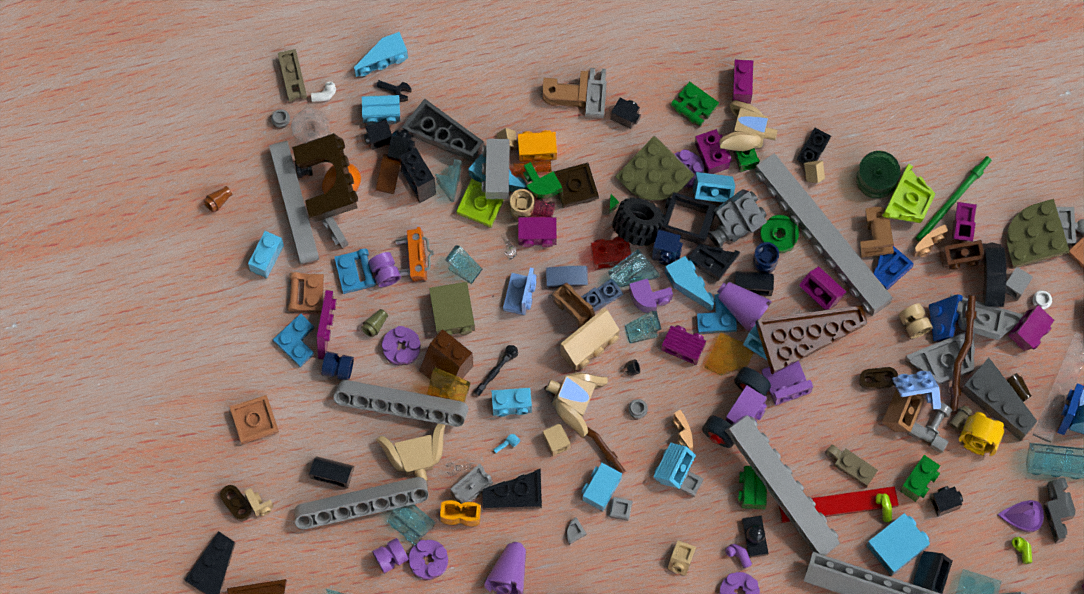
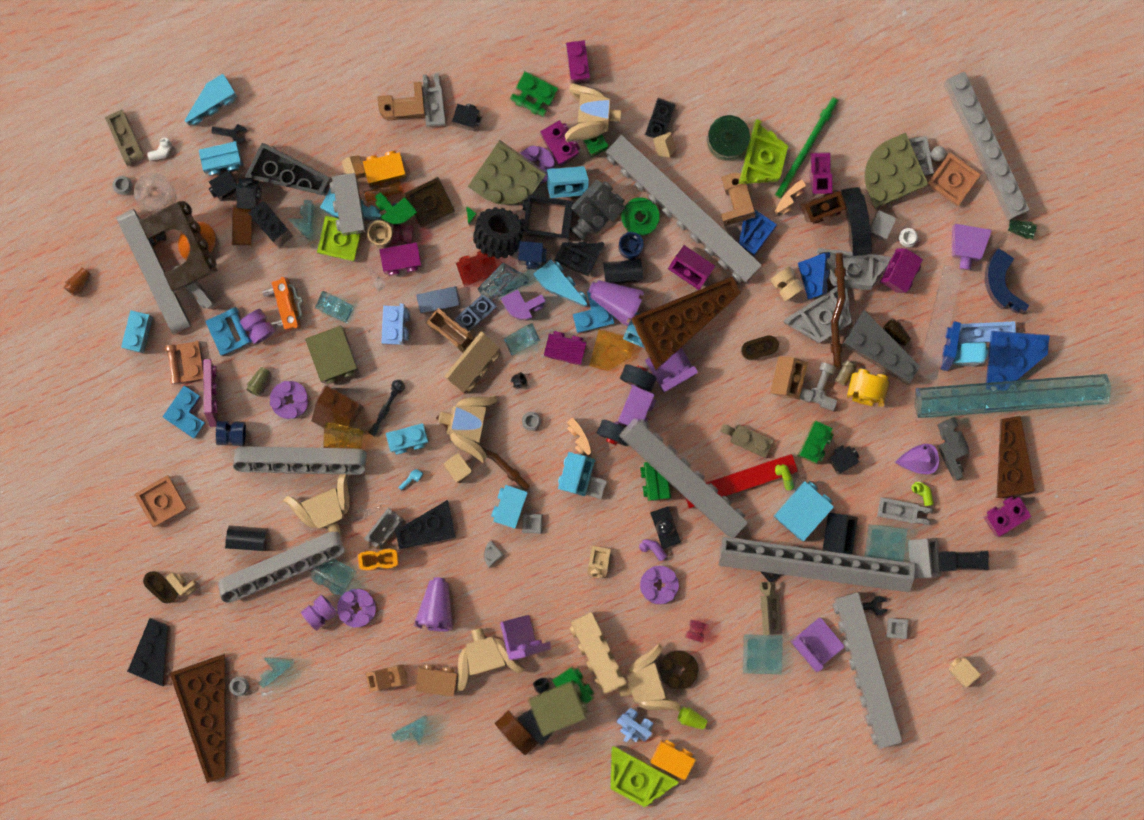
camera: 10 degrees left, 15 degrees up
(919, 383) = (798, 352): light blue bracket -> none
(999, 563) = (902, 511): none -> light grey hinge

